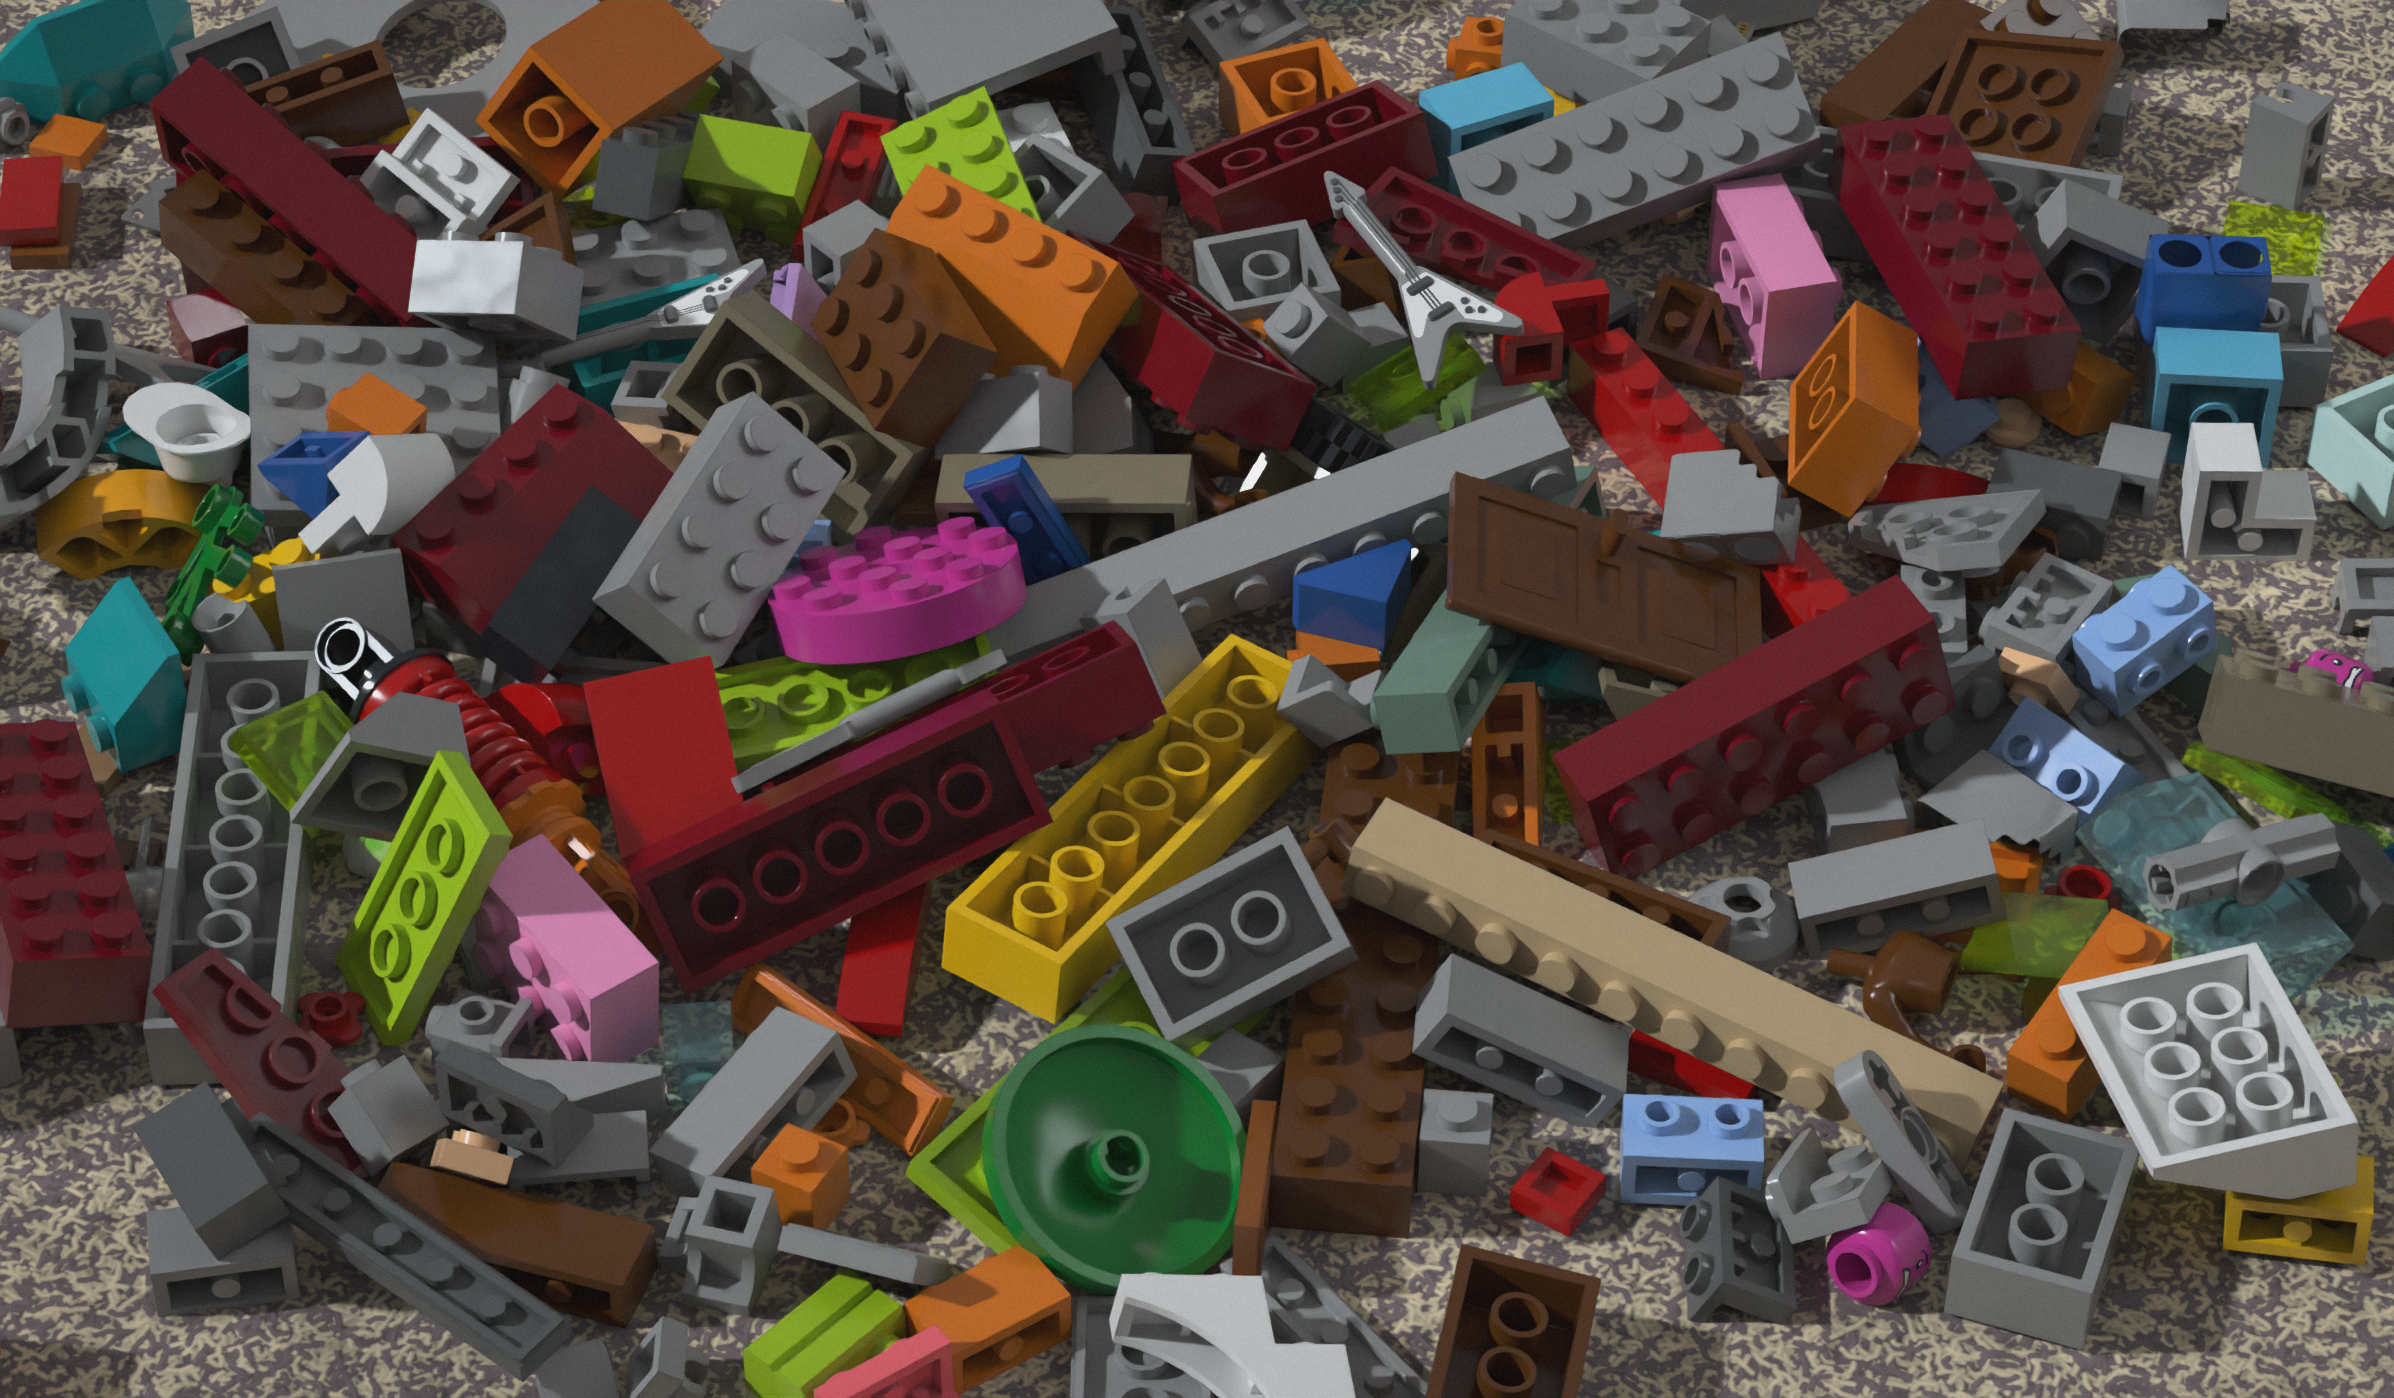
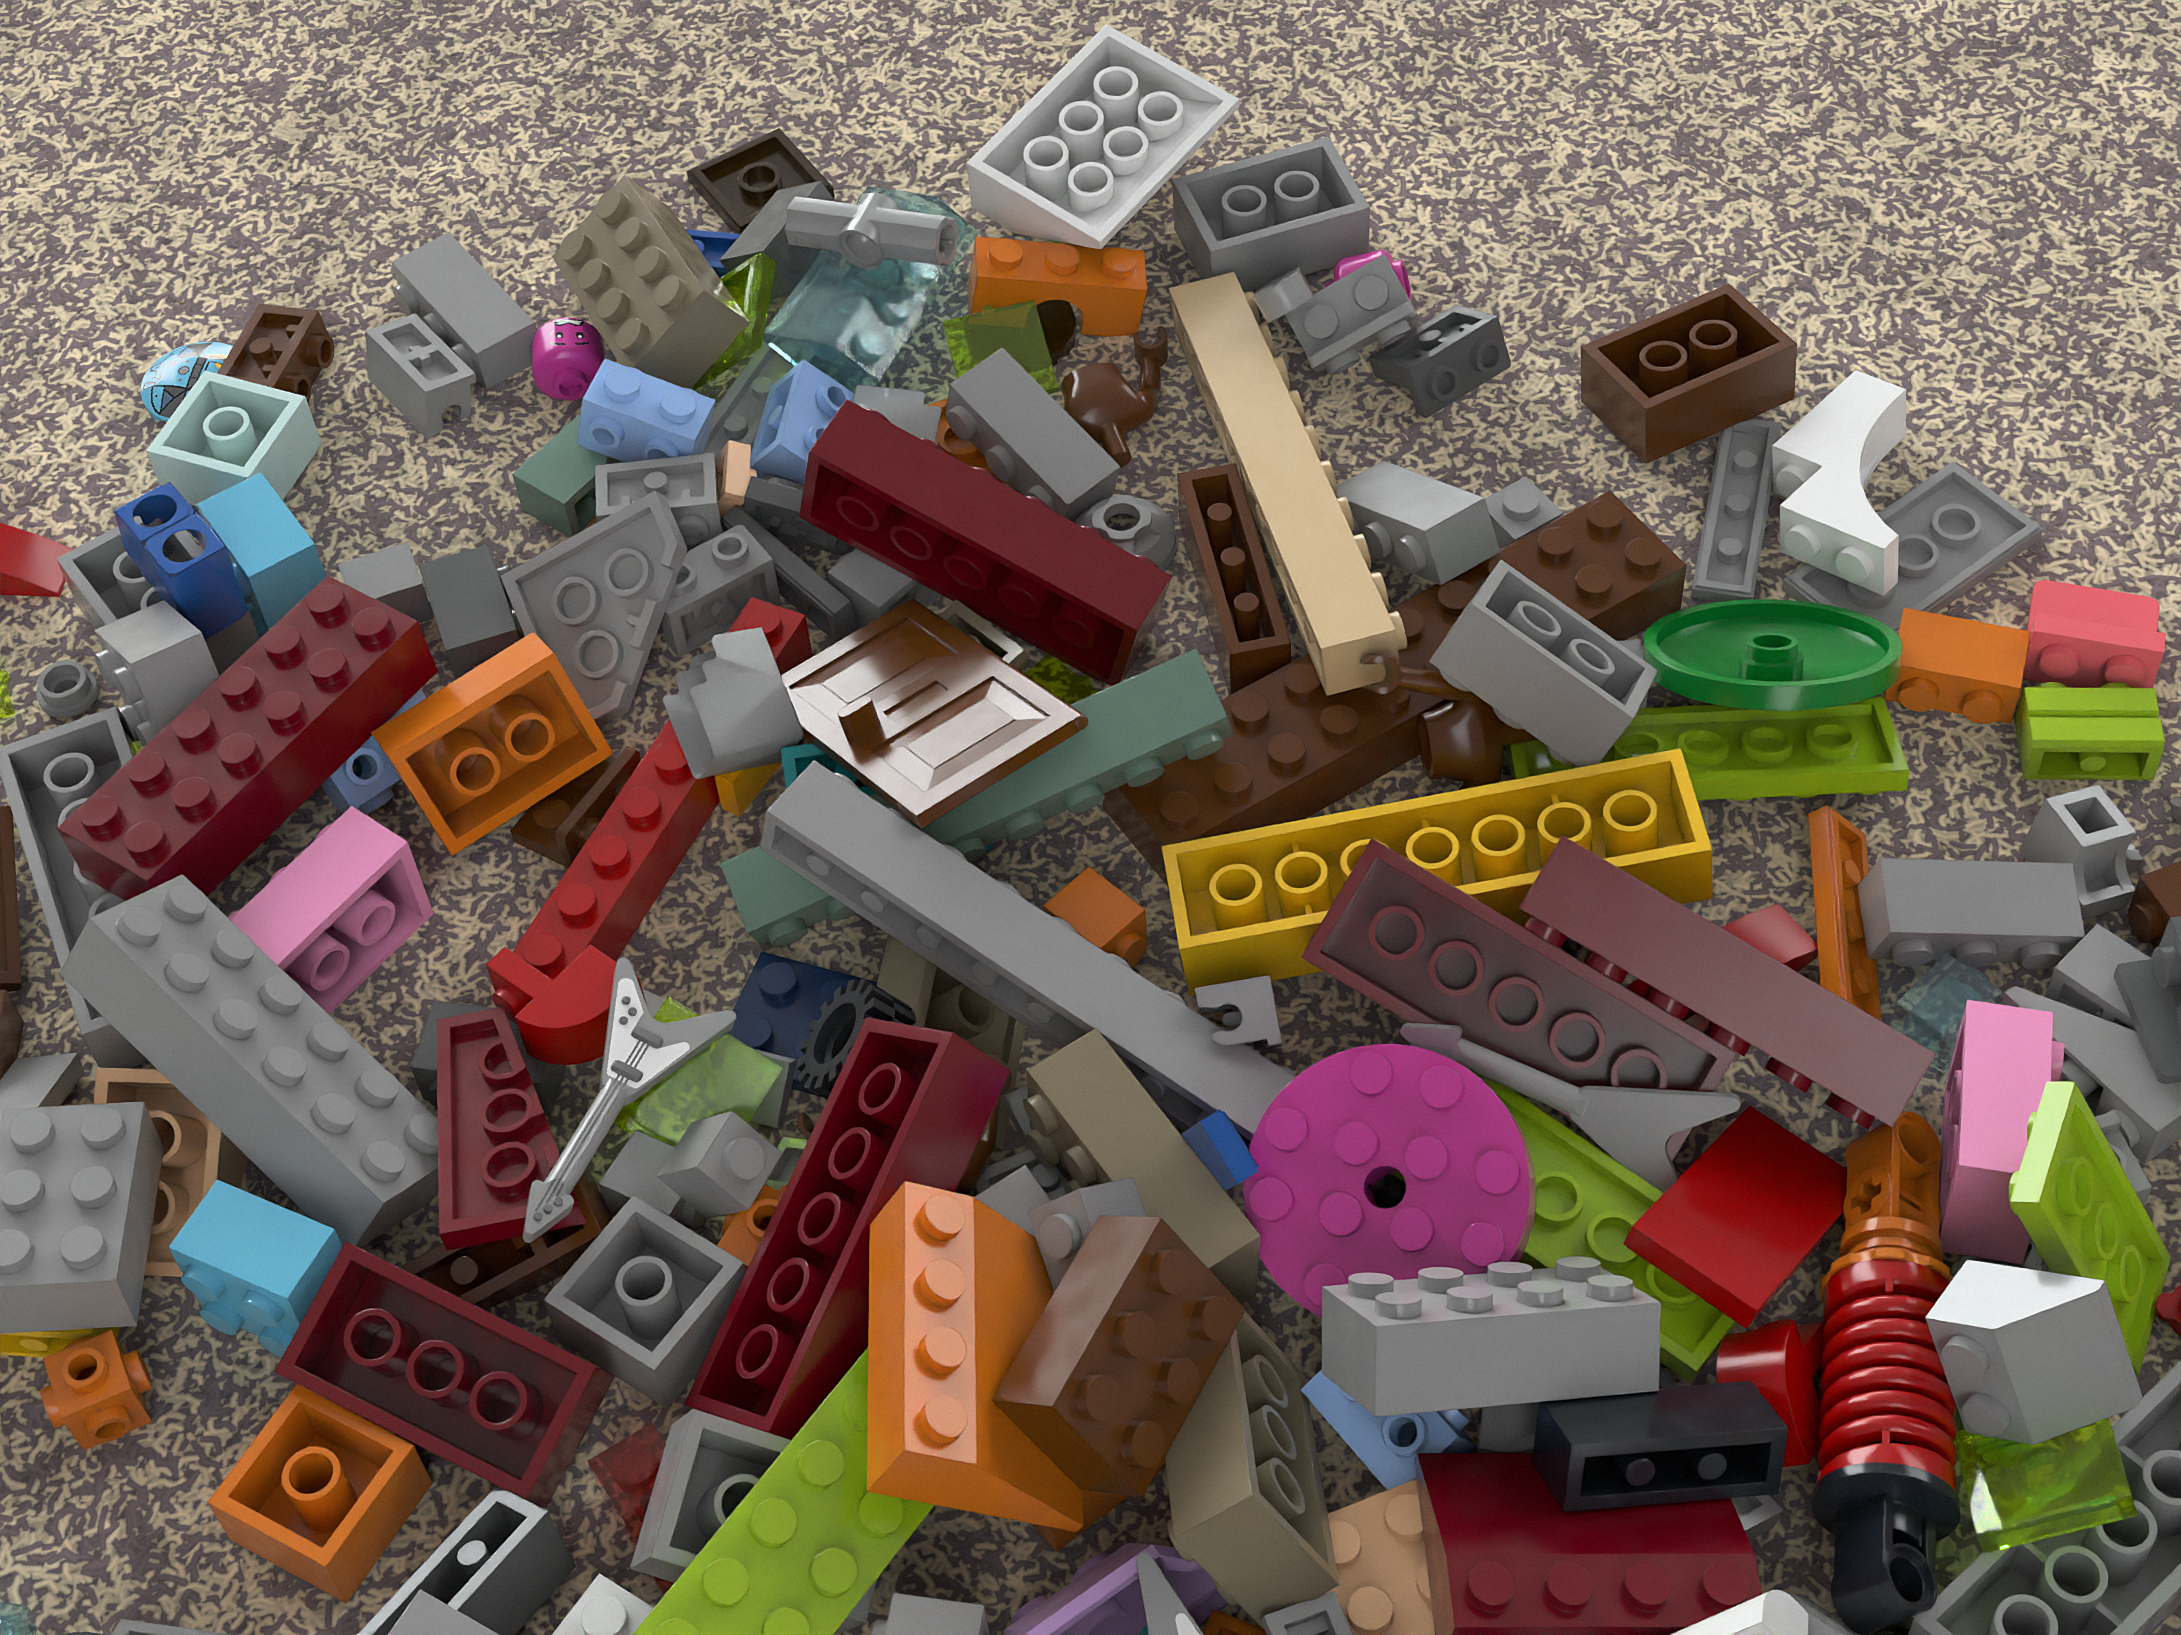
camera: 125 degrees left, 10 degrees up
(807, 1176) = (1984, 832): orange brick -> none
(864, 1255) = (2008, 745): light grey tile -> none
(1254, 1190) = (1700, 582): dark orange tile -> none
(1324, 703) = (1208, 800): light grey panel -> none
(1355, 597) = (1057, 883): blue slope -> none
(1558, 1191) = (1487, 466): red plate -> none
(1689, 338) = (444, 968): reddish brown wing -> none
(1690, 1142) = (1389, 410): light blue brick -> none
(2086, 882) = (914, 375): red plate -> none
(2235, 507) = (387, 495): white brick -> none

